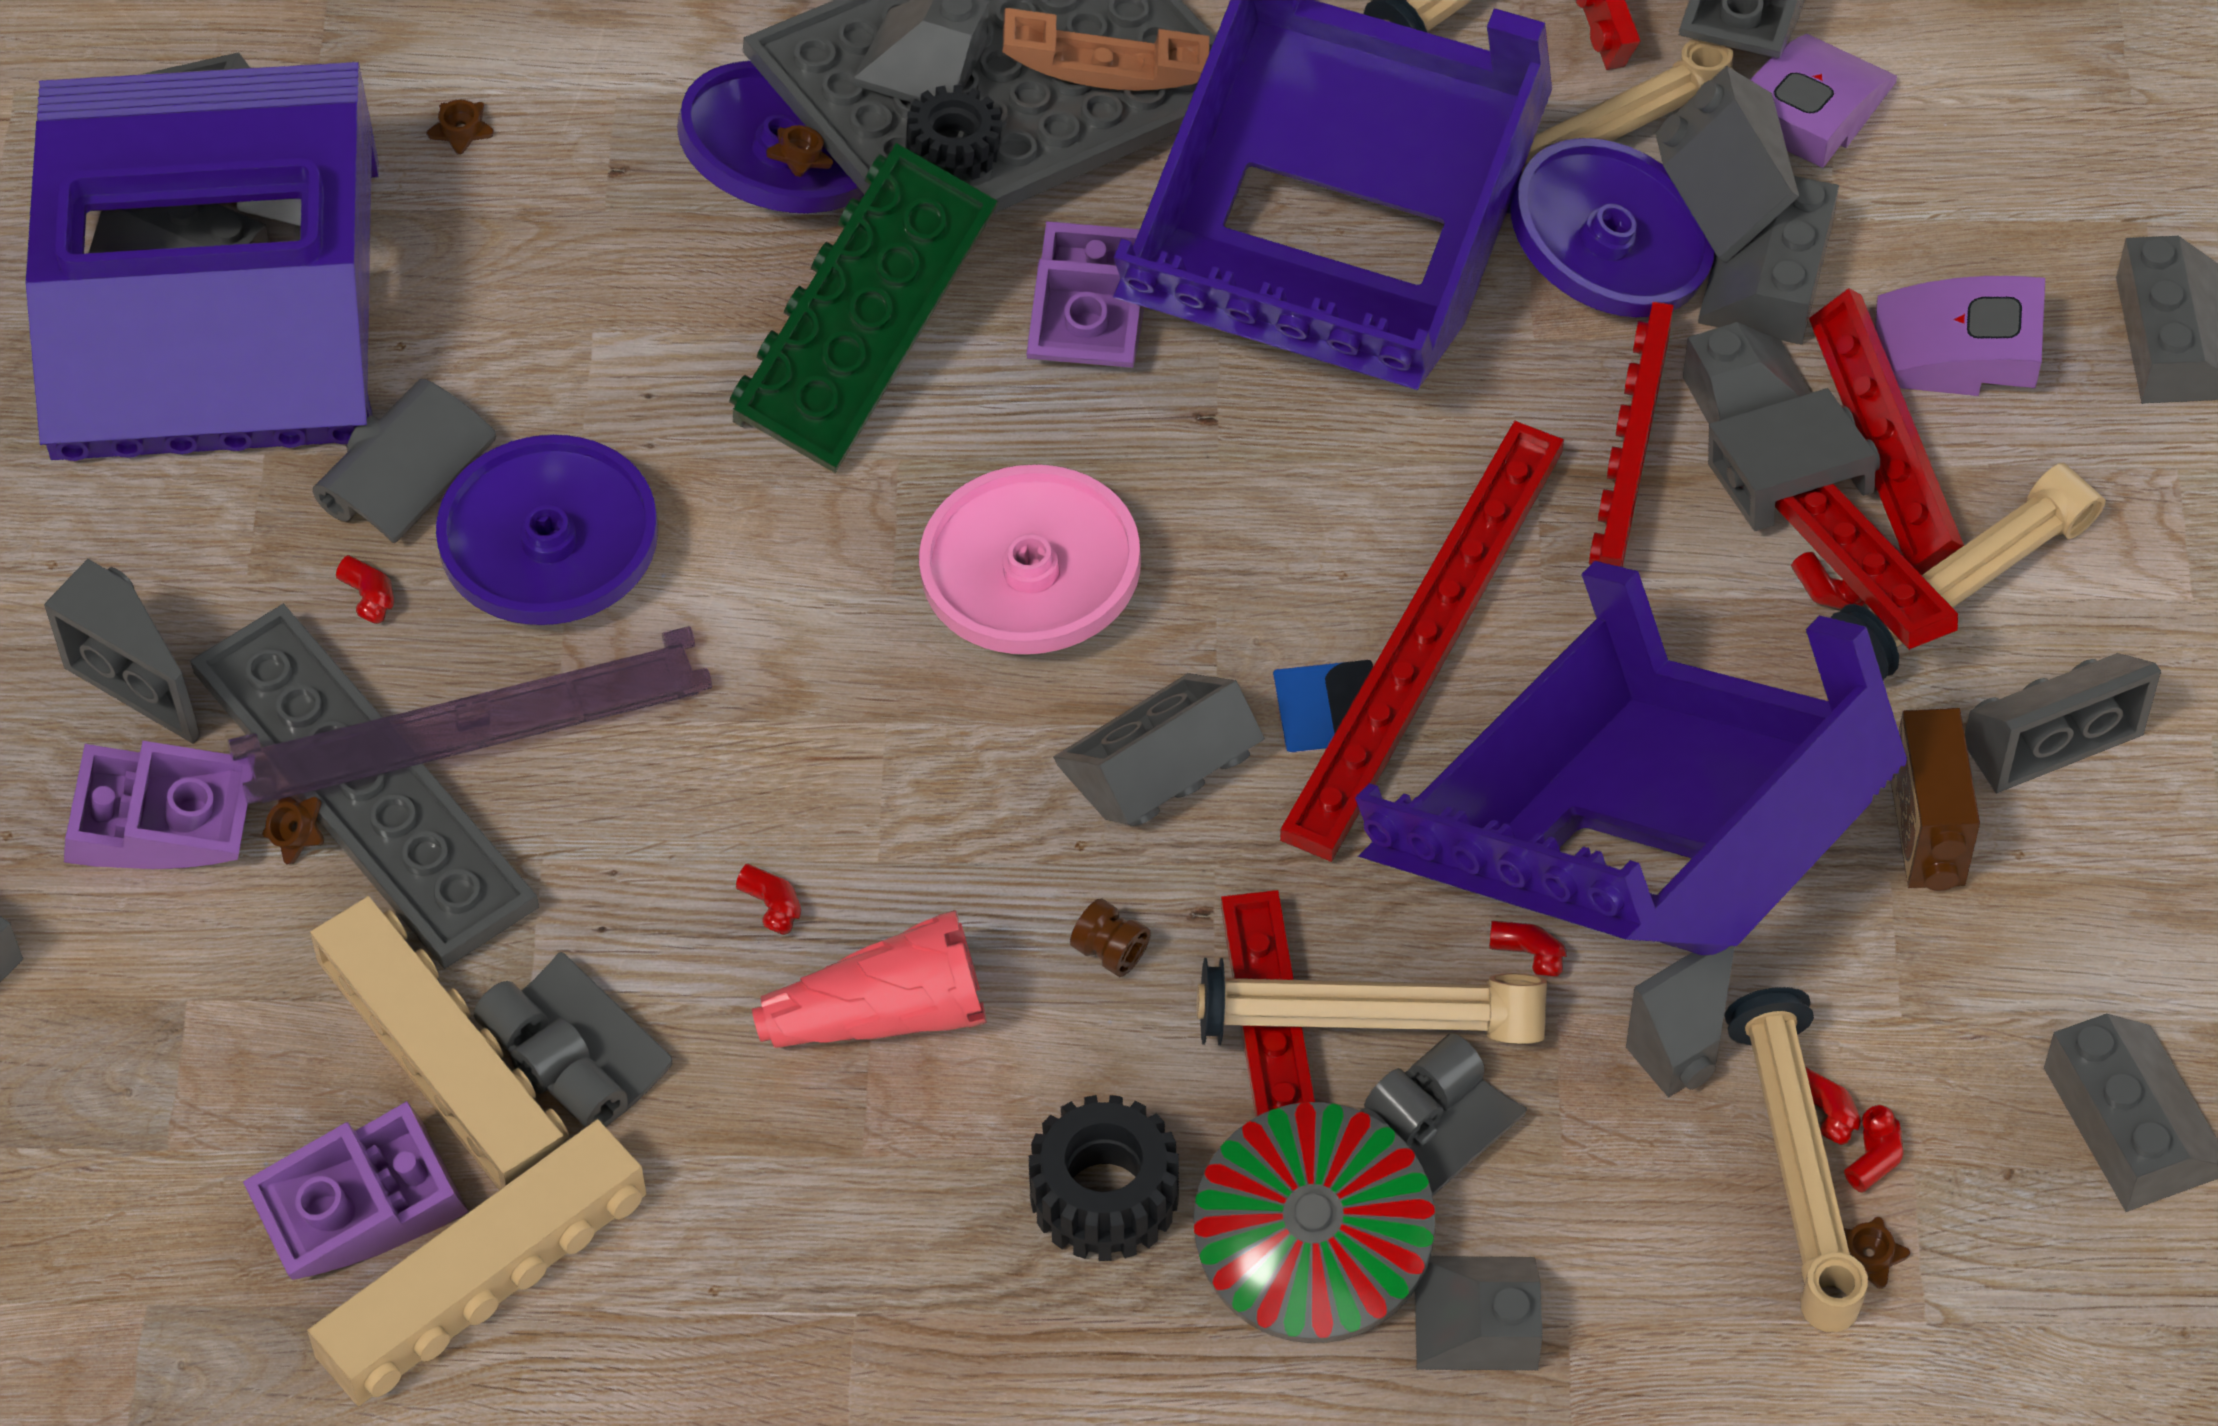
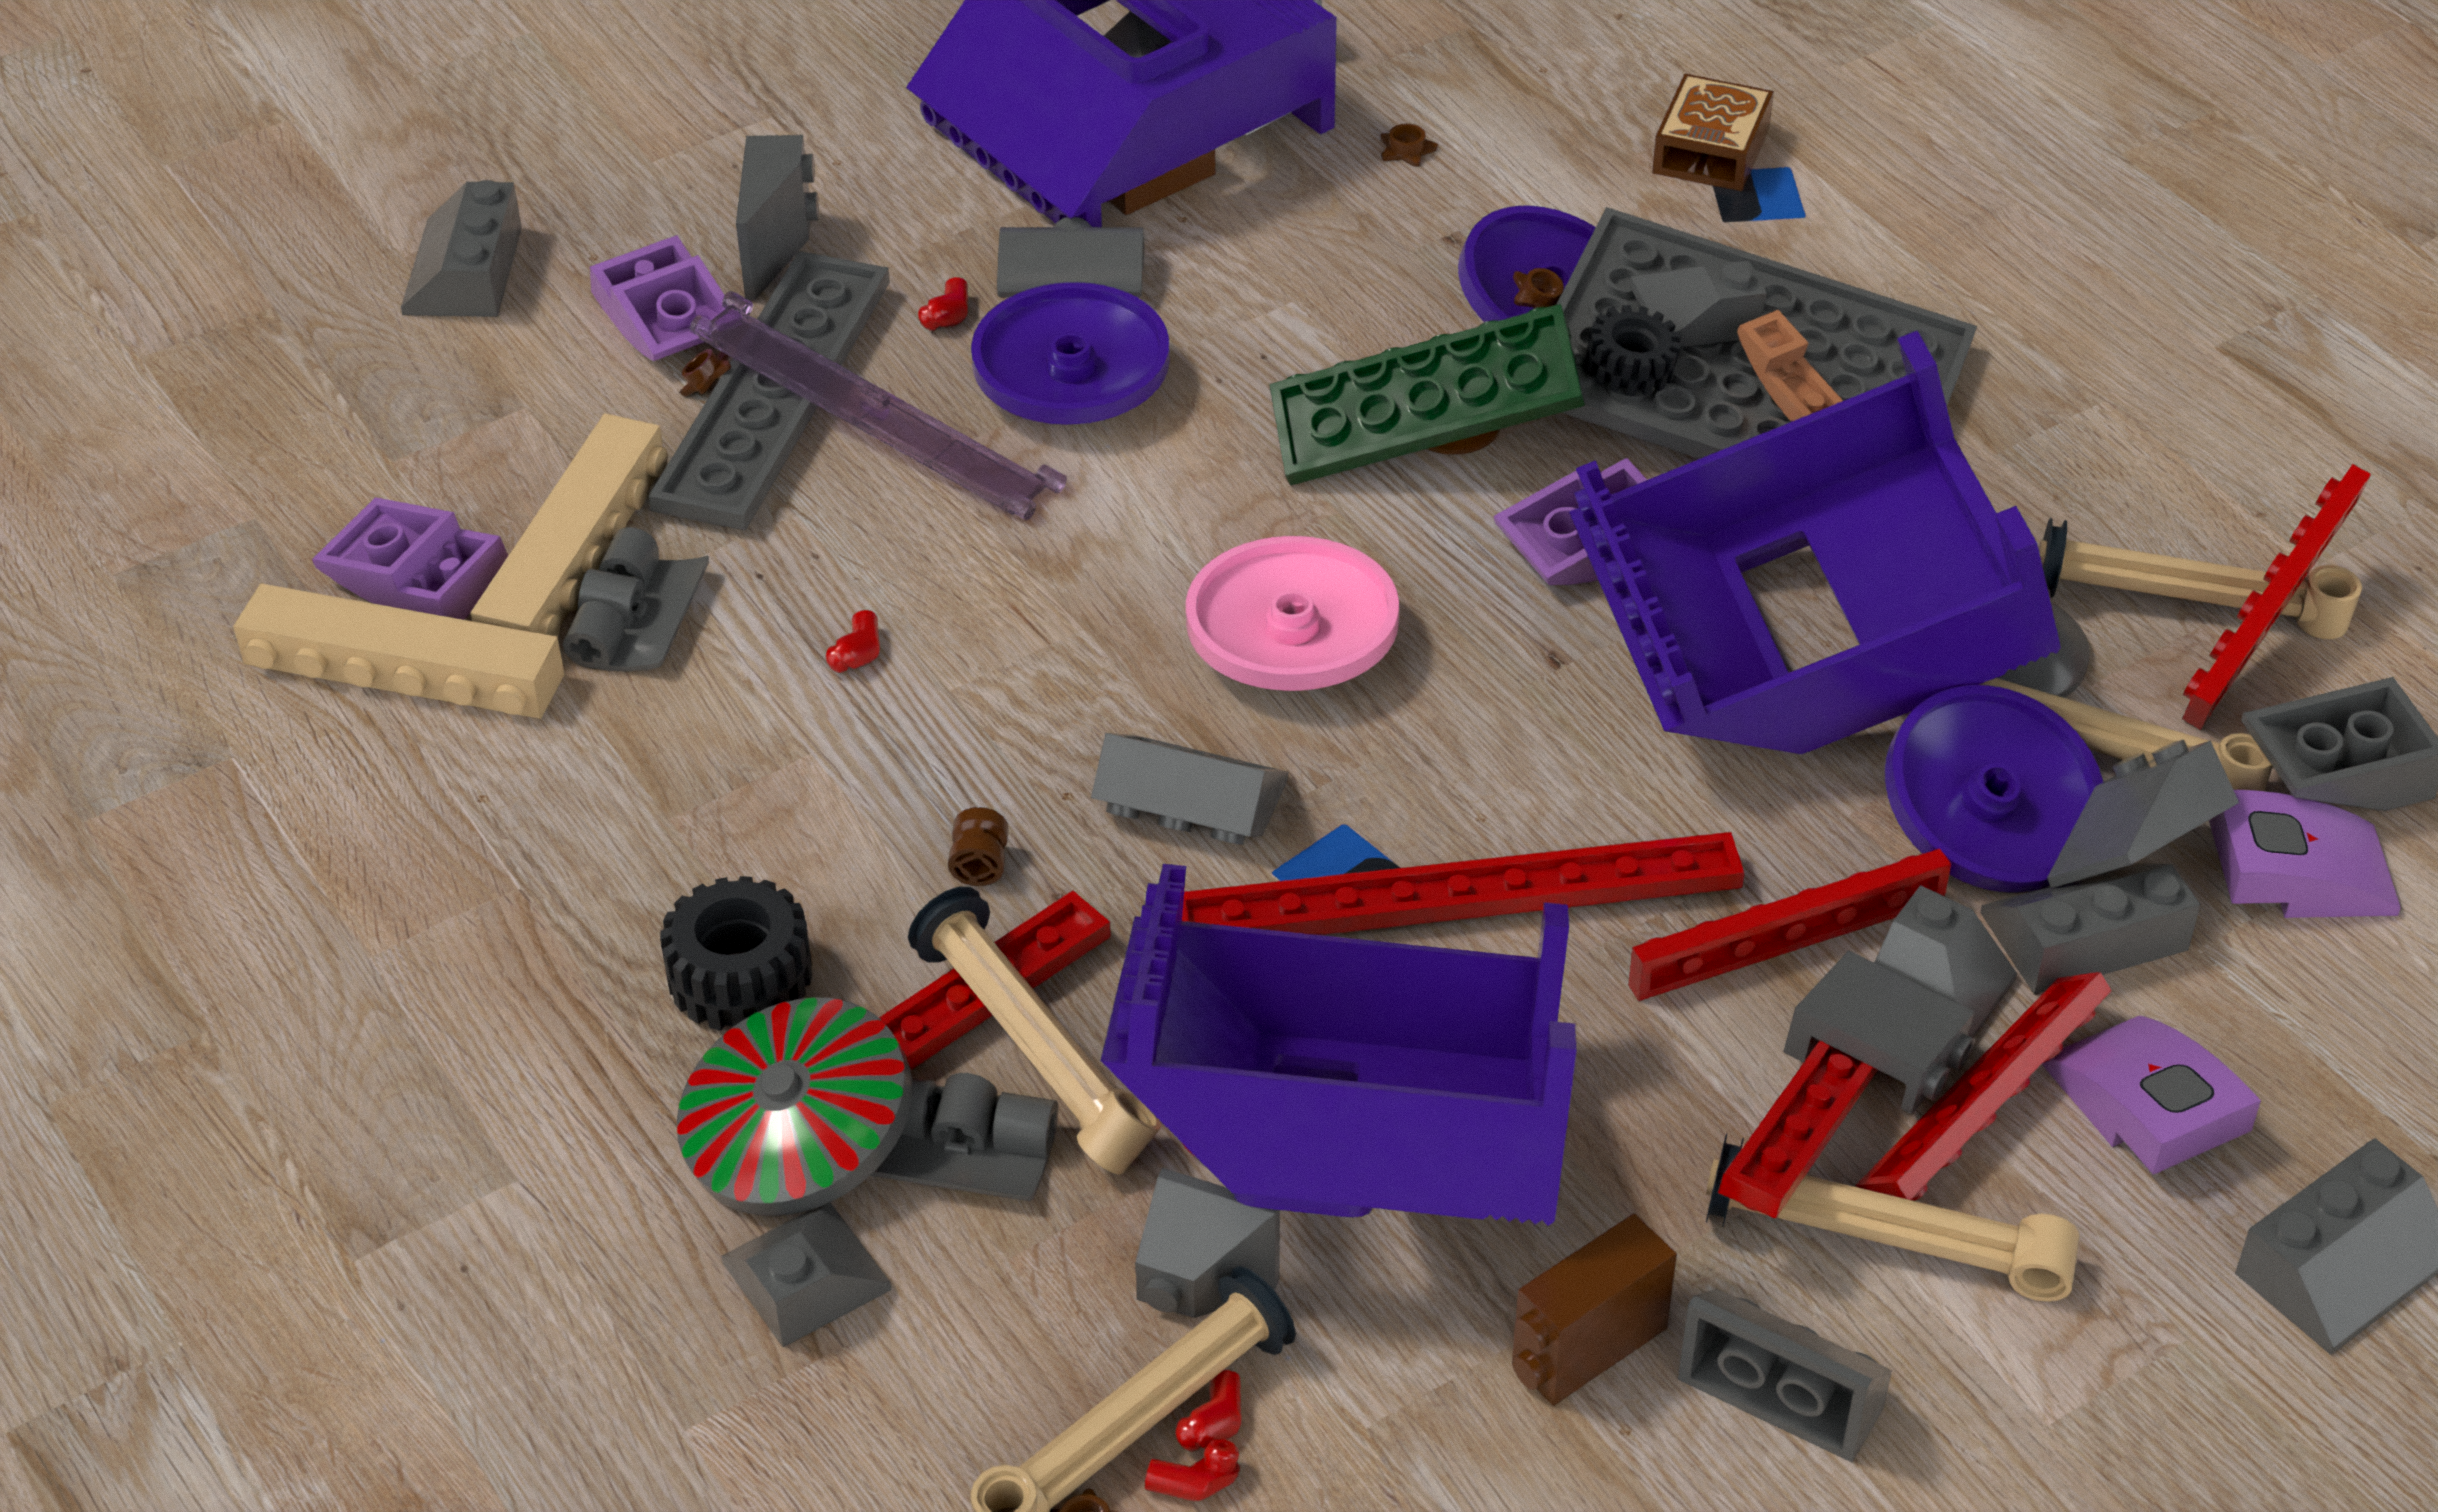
camera: 55 degrees right, 10 degrees down
(881, 991) = (822, 743): coral cone -> none

